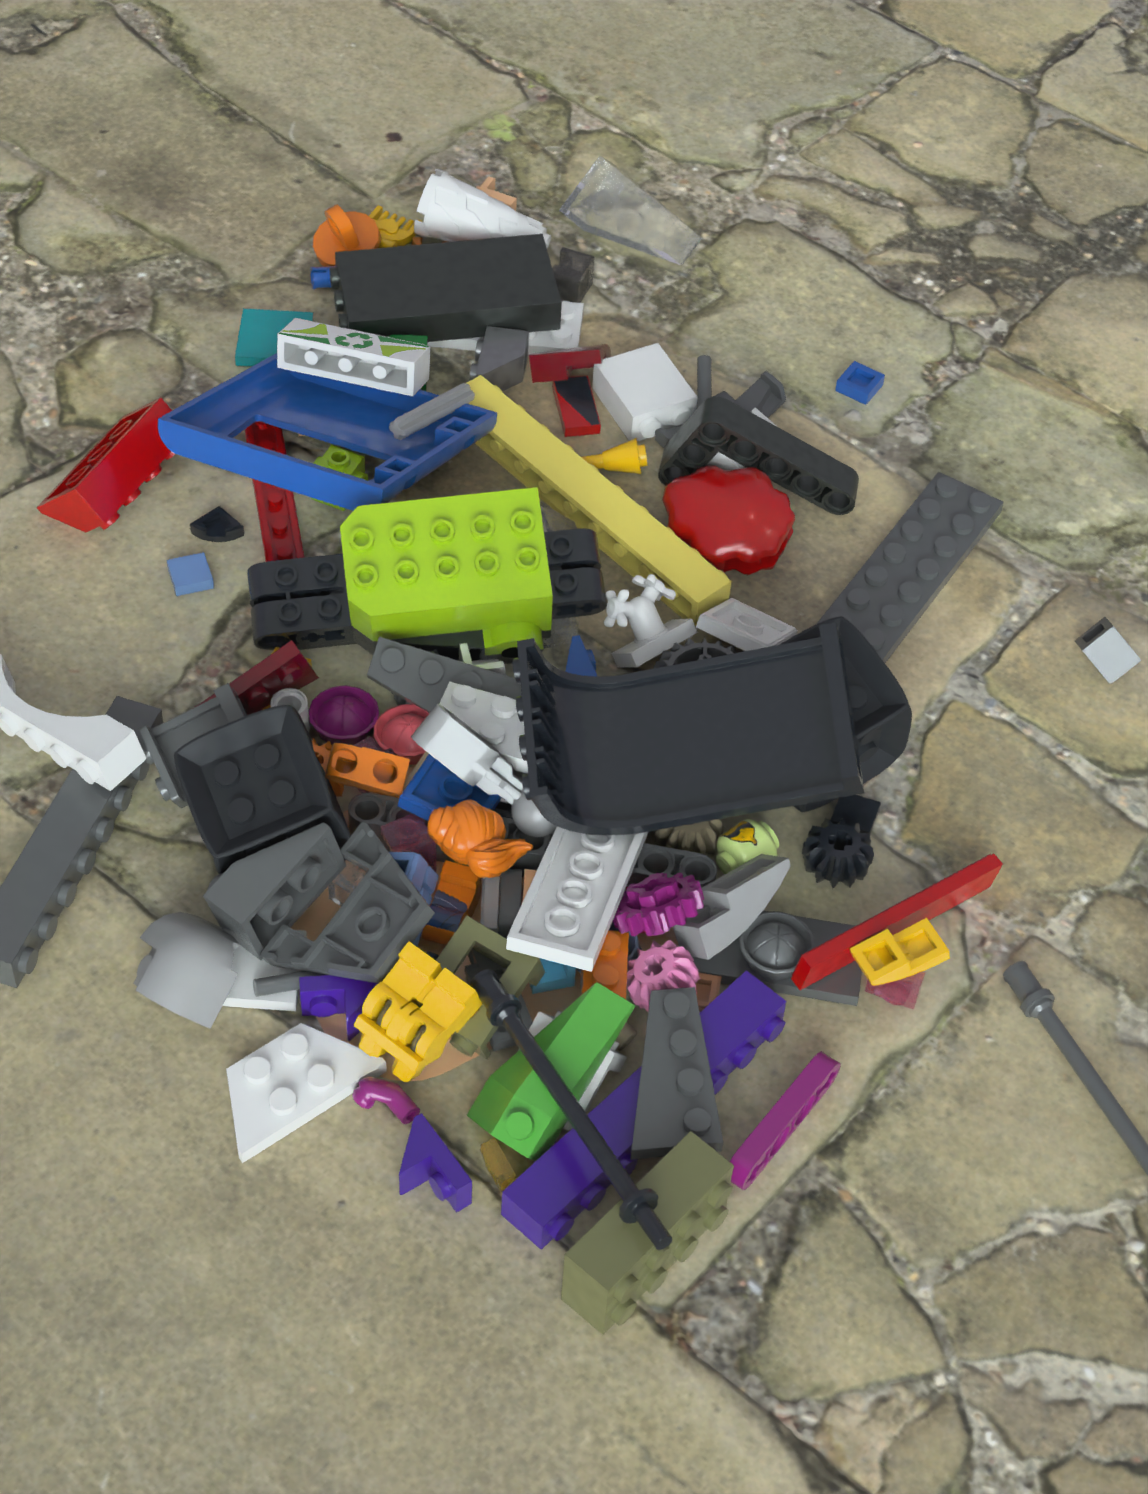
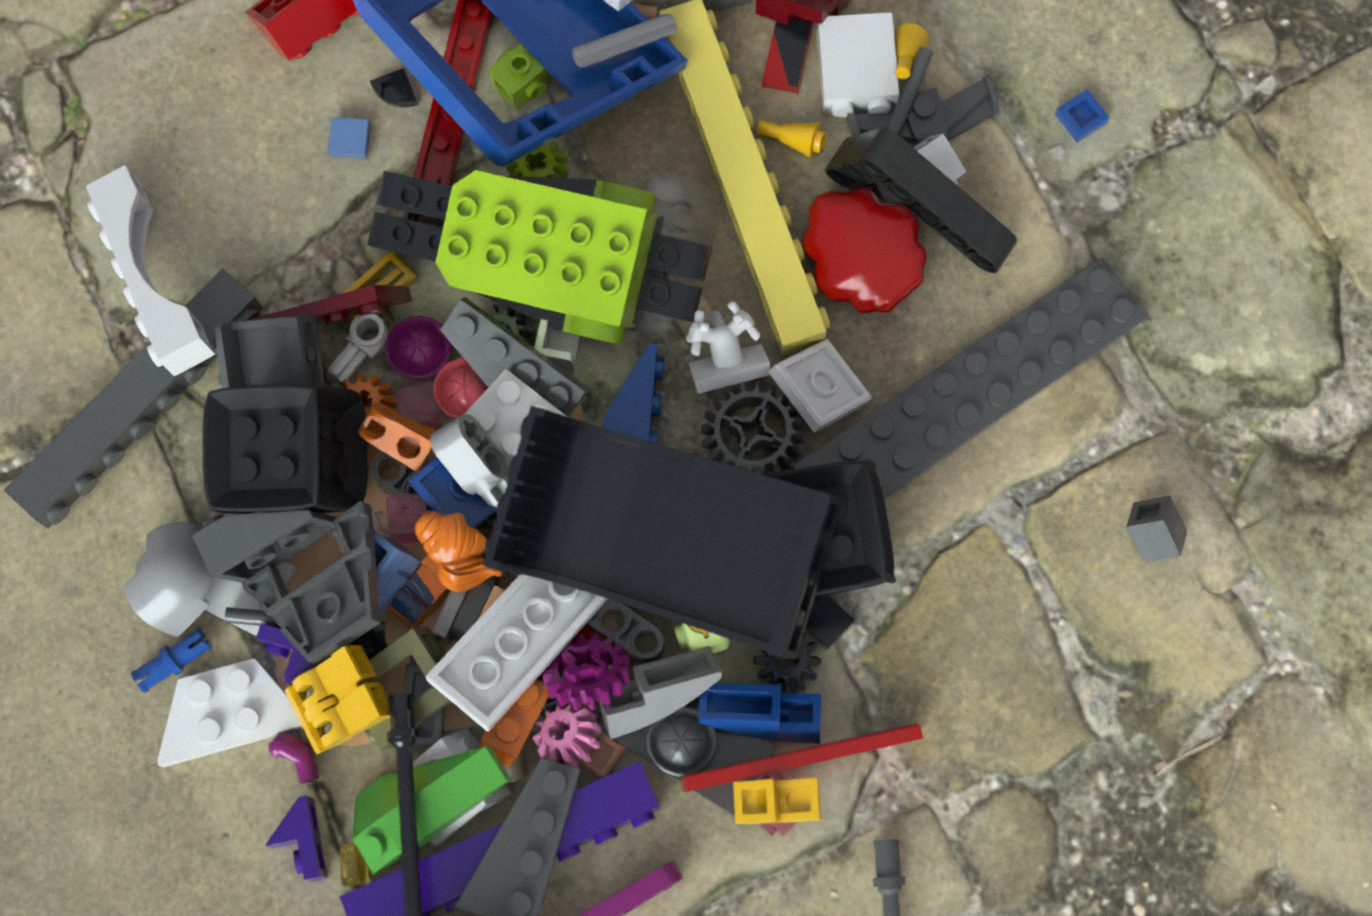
camera: 30 degrees right, 25 degrees up
(211, 1054) = (171, 660): none -> blue pin
(686, 363) = (908, 40): none -> yellow cone
(840, 895) = (762, 712): none -> blue slope

